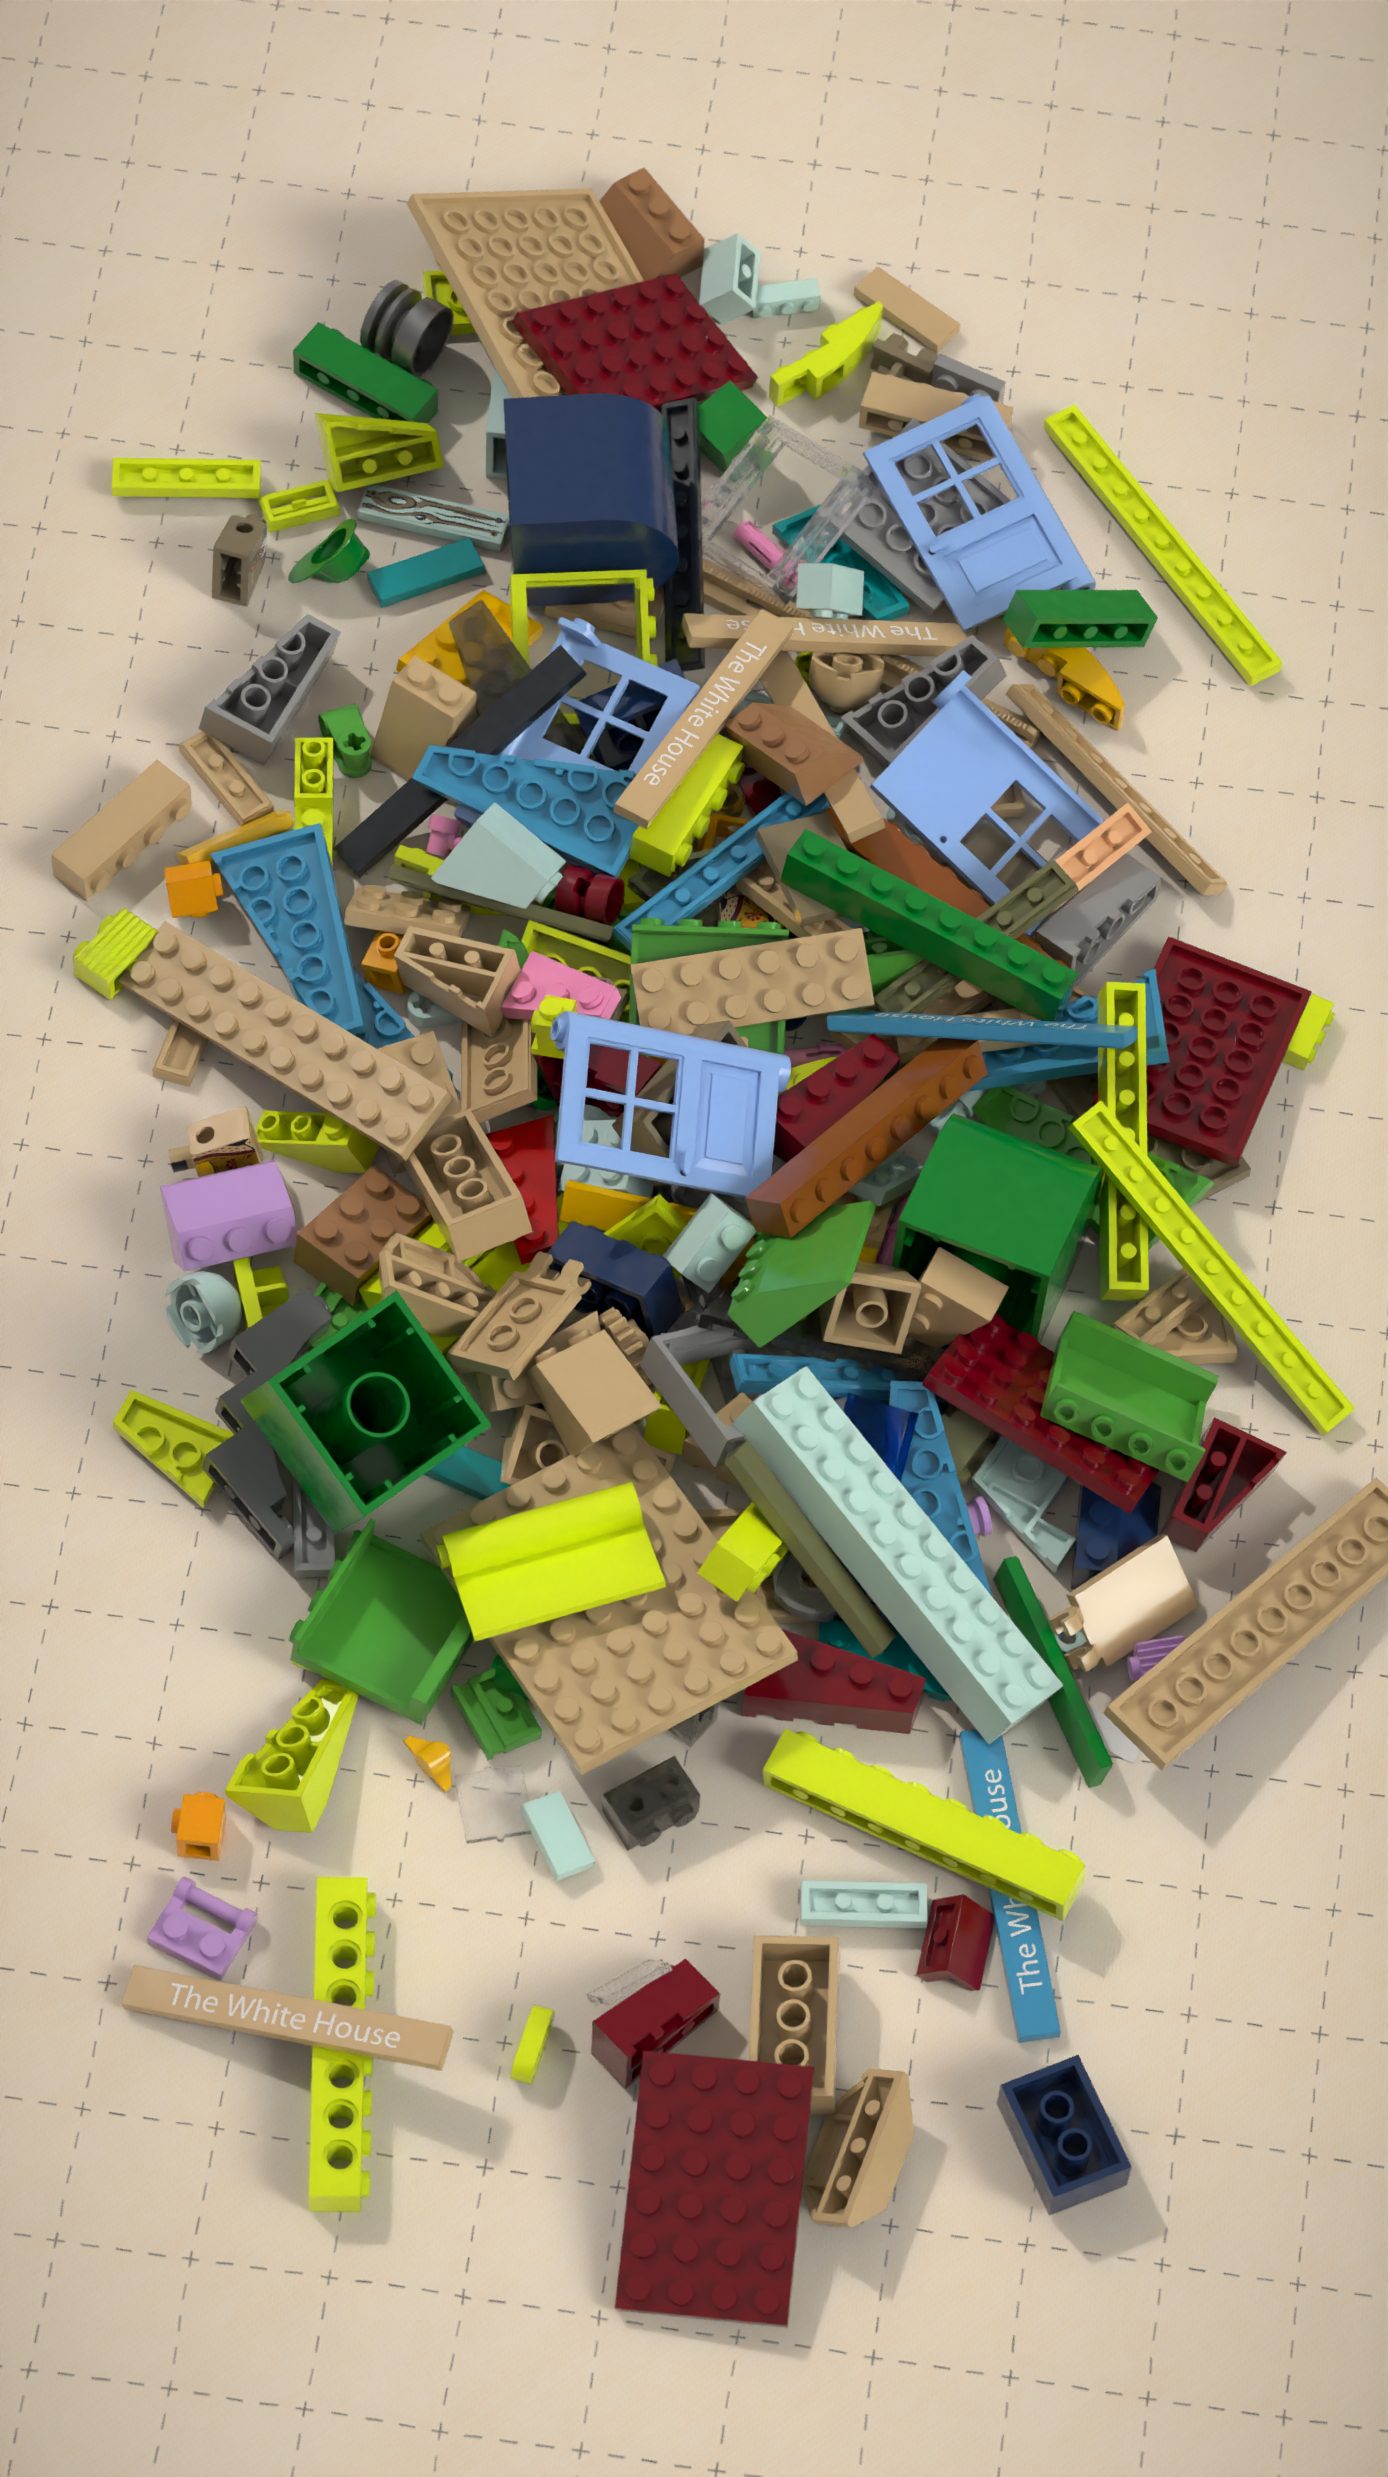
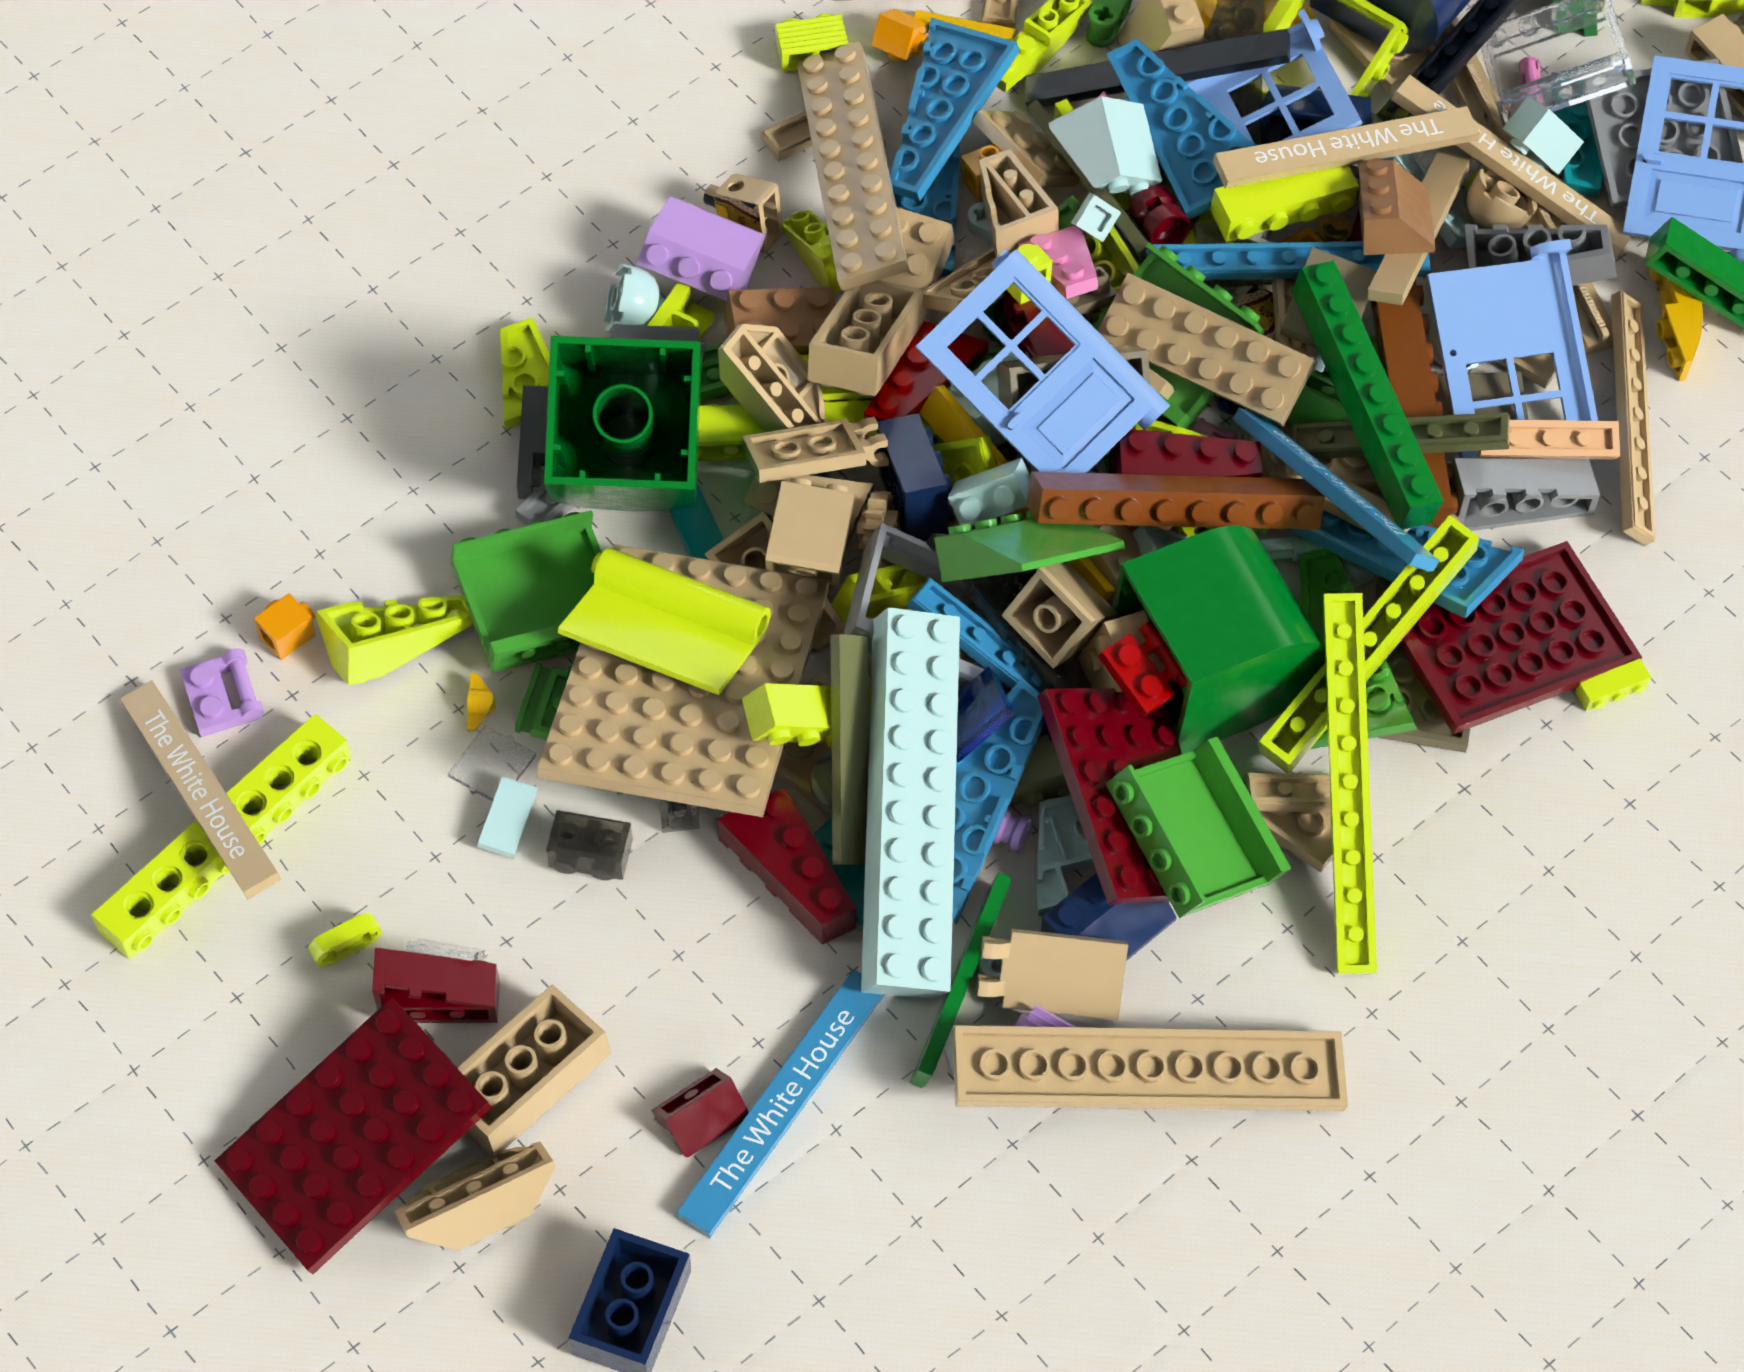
camera: 45 degrees right, 0 degrees up
(547, 935) = (1096, 217): none -> light aqua tile
(863, 1904) = (664, 1031): light aqua plate -> none
(924, 1823) = (757, 1011): neon yellow brick -> none
(984, 1304) = (1138, 675): none -> red plate
(1222, 1481) = (1214, 943): dark red wedge -> none

